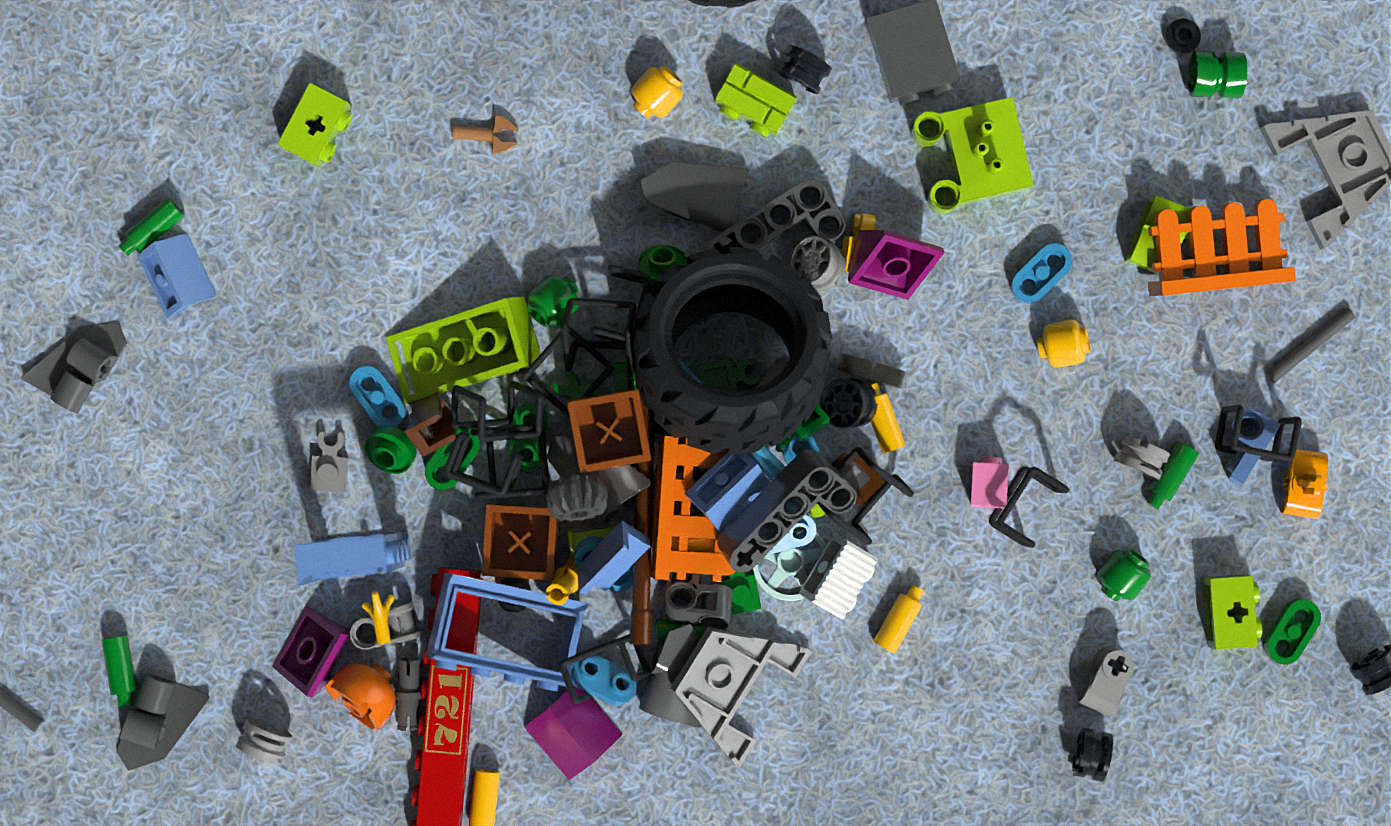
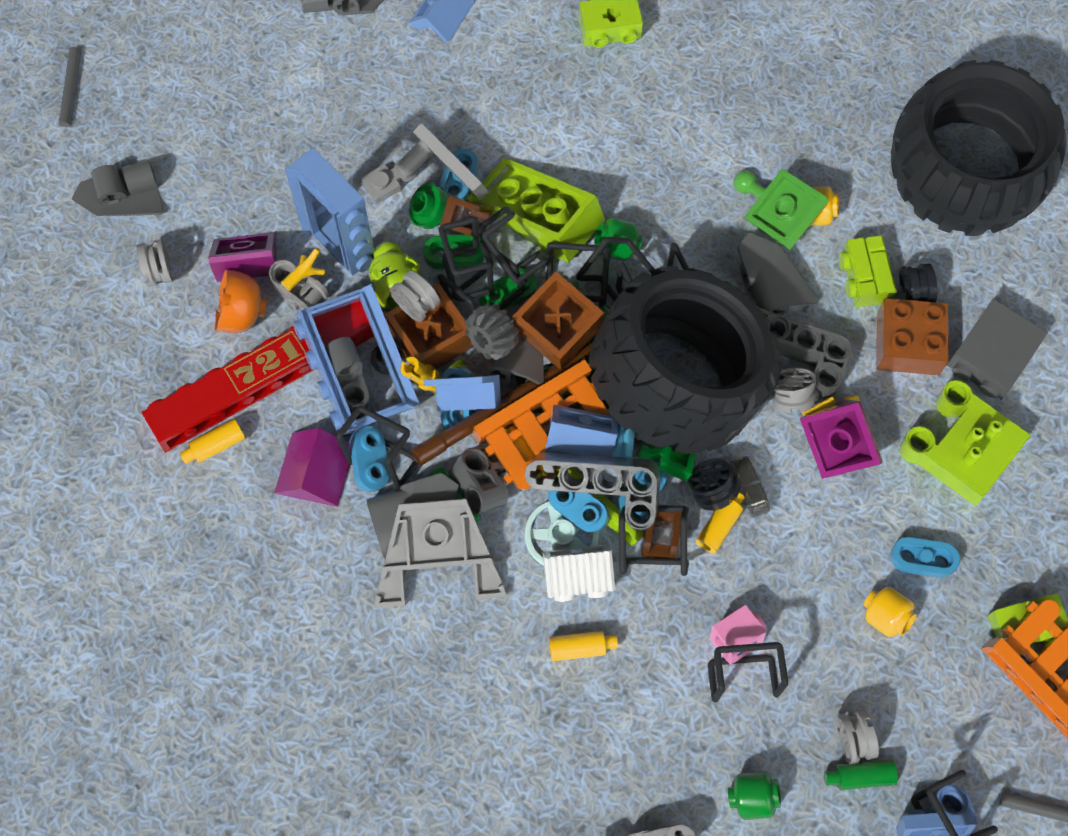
camera: 55 degrees right, 20 degrees down
(119, 668) = (142, 144): green cylinder -> none
(333, 404) = (431, 145): none -> light grey piece
(408, 693) = (272, 327): dark grey pin -> none
(444, 534) = (387, 269): none -> lime piece
(487, 134) = (694, 127): medium nougat bar -> none
(493, 542) = (415, 296): none -> light grey wheel
(513, 646) = (348, 371): none -> dark grey piece
(639, 126) = (783, 207): none -> bright green plate
(745, 592) = (514, 513): green plate -> none
(846, 116) = (912, 336): none -> dark orange brick

